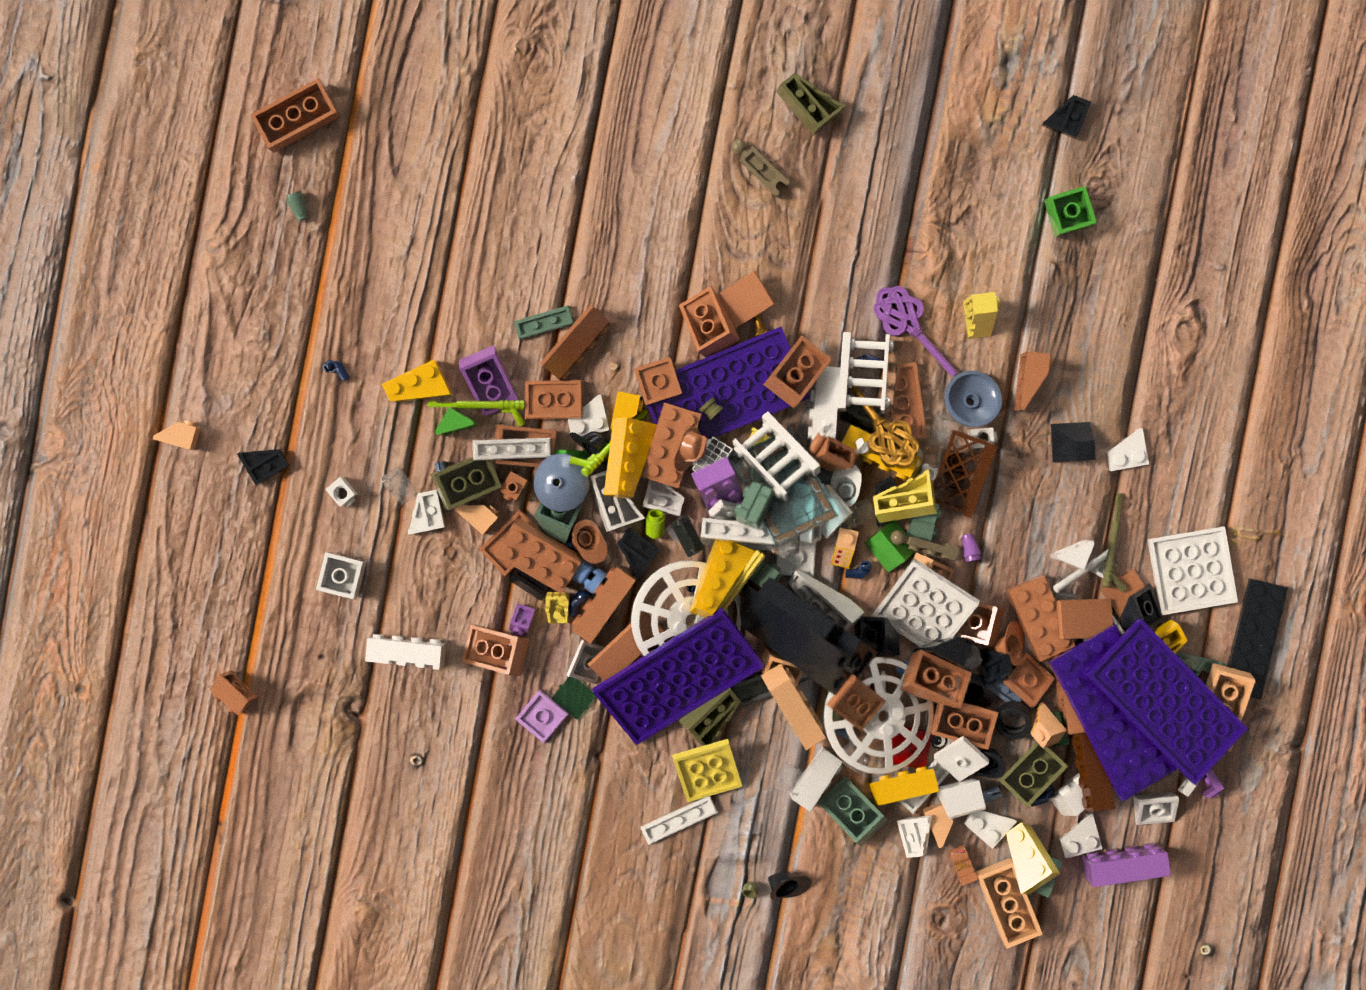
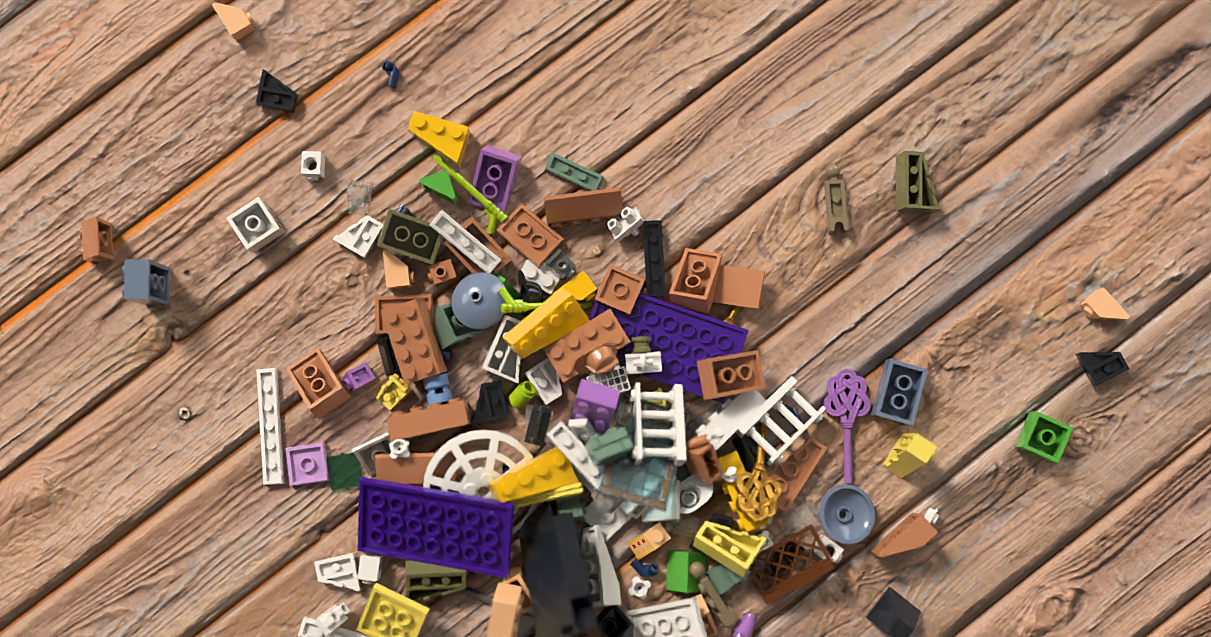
camera: 40 degrees right, 5 degrees down
(301, 690) = (146, 282): none -> sand blue brick
(406, 652) = (251, 324): white wedge -> none
(488, 713) = (270, 426): none -> white tile
(576, 600) = (412, 399): dark blue arm -> none
(589, 541) = (461, 364): nougat piece -> none
(591, 406) = (553, 264): none -> dark grey brick
(596, 644) = (395, 445): none -> white plate
(619, 327) = (627, 224): none -> white hips
(636, 772) = (339, 571): none -> white wing
(657, 749) = (370, 568): none -> white brick
(662, 334) = (654, 258): none -> black plate
(662, 809) = (332, 618): none -> white hips
(725, 420) = (643, 363): none -> white hips
(750, 686) = (482, 583): pearl dark grey panel -> none
(872, 589) = (633, 590): none -> white plate
(934, 273) = (899, 392): none -> sand blue brick
(1030, 71) = (1103, 307): none -> light nougat slope
(1037, 344) = (932, 516): none -> white plate

